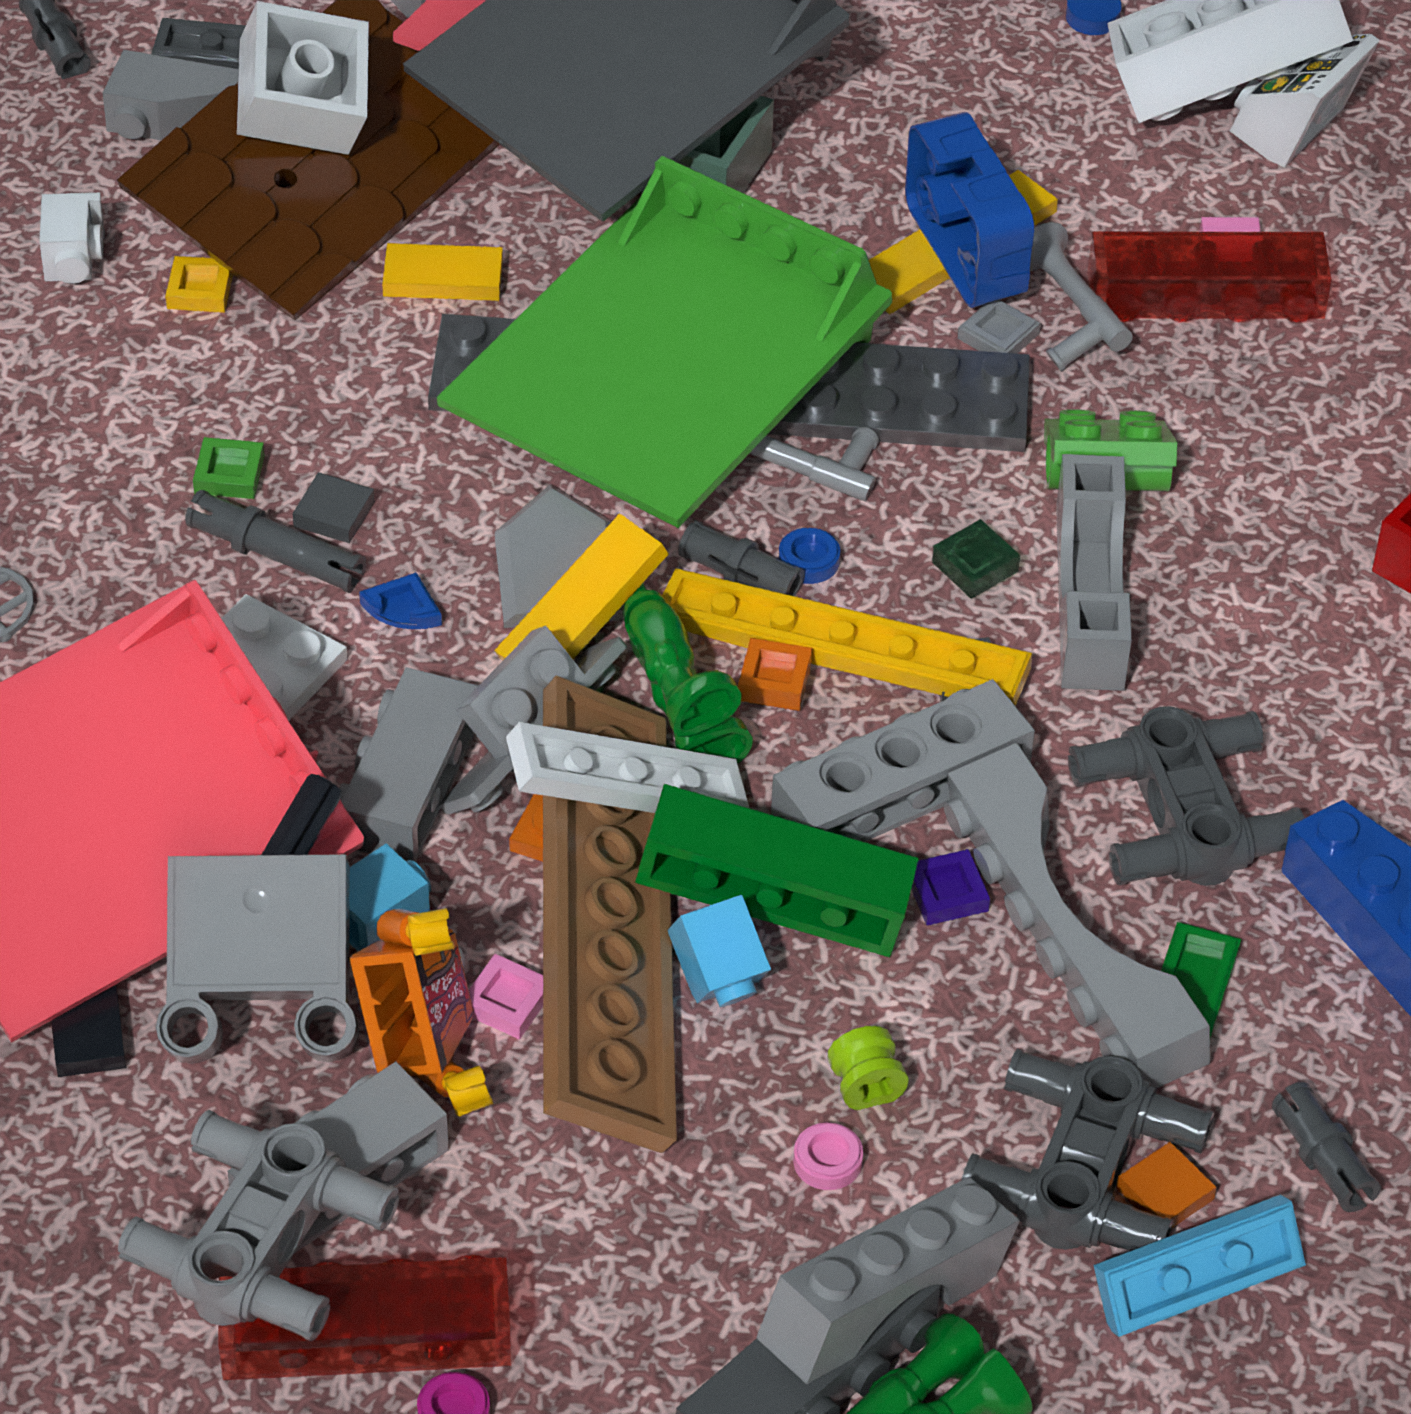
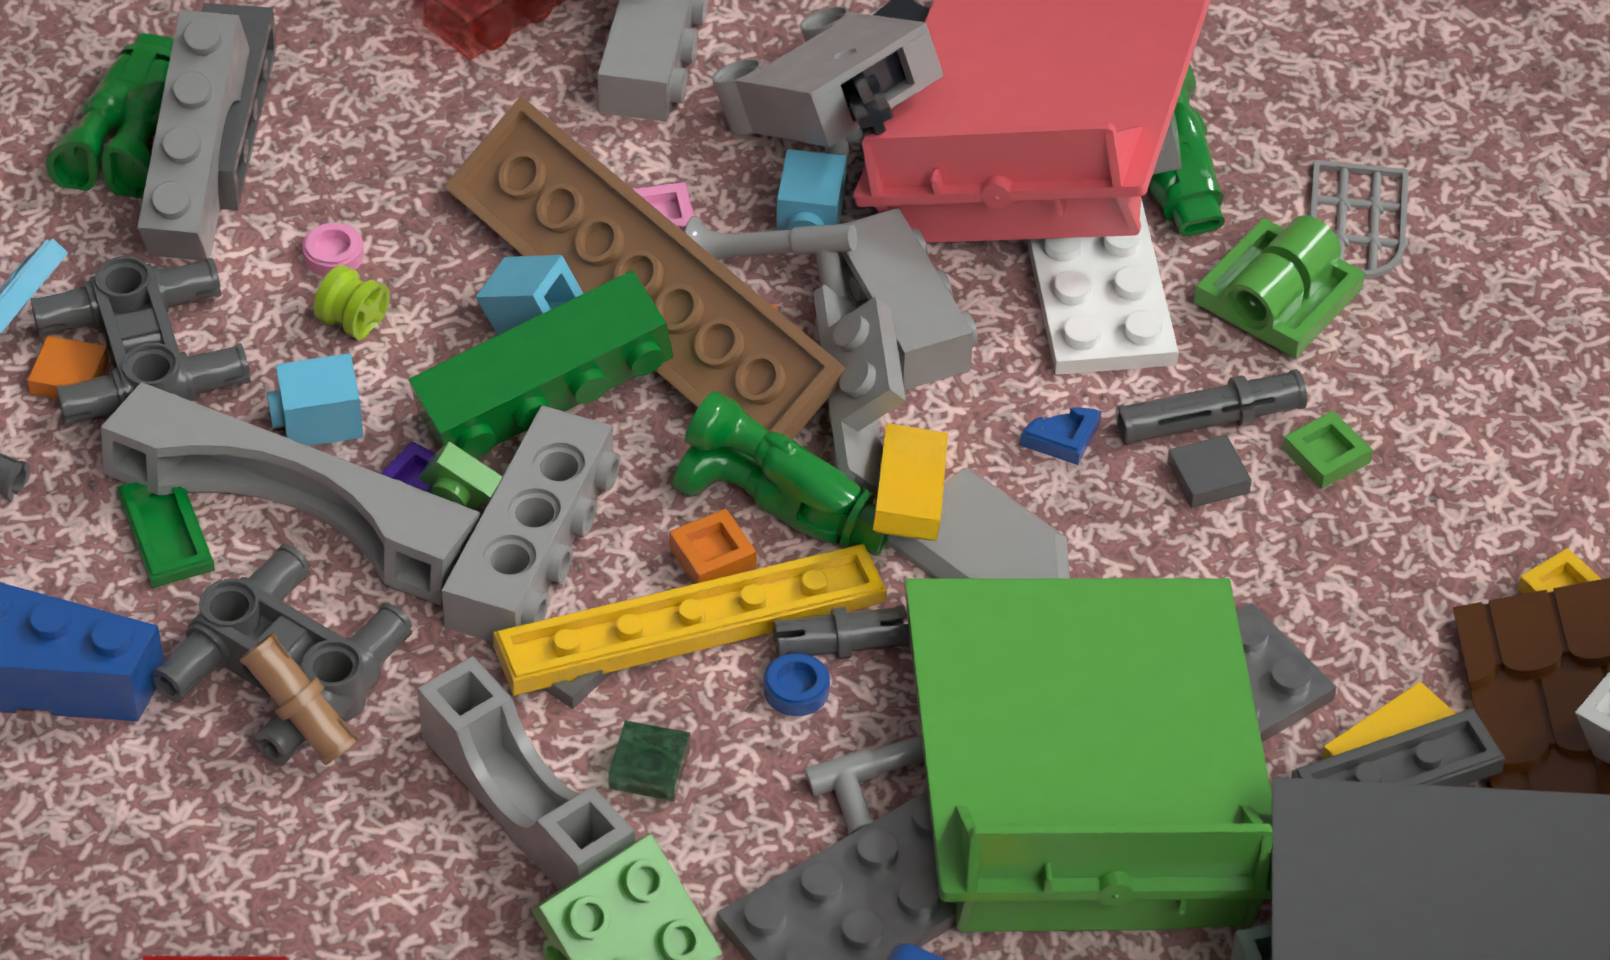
camera: 140 degrees right, 0 degrees up
(96, 583) = (1282, 283): none -> bright green plate
(419, 1003) = (691, 121): orange torso -> none
(478, 234) = (1437, 754): none -> dark grey tile
(512, 909) = (822, 240): none -> light grey piece
(615, 769) = (711, 337): white plate -> none
(932, 822) = (459, 477): none -> bright green plate
(980, 988) = (317, 400): none -> medium azure brick
(1222, 705) = (299, 698): none -> medium nougat pin

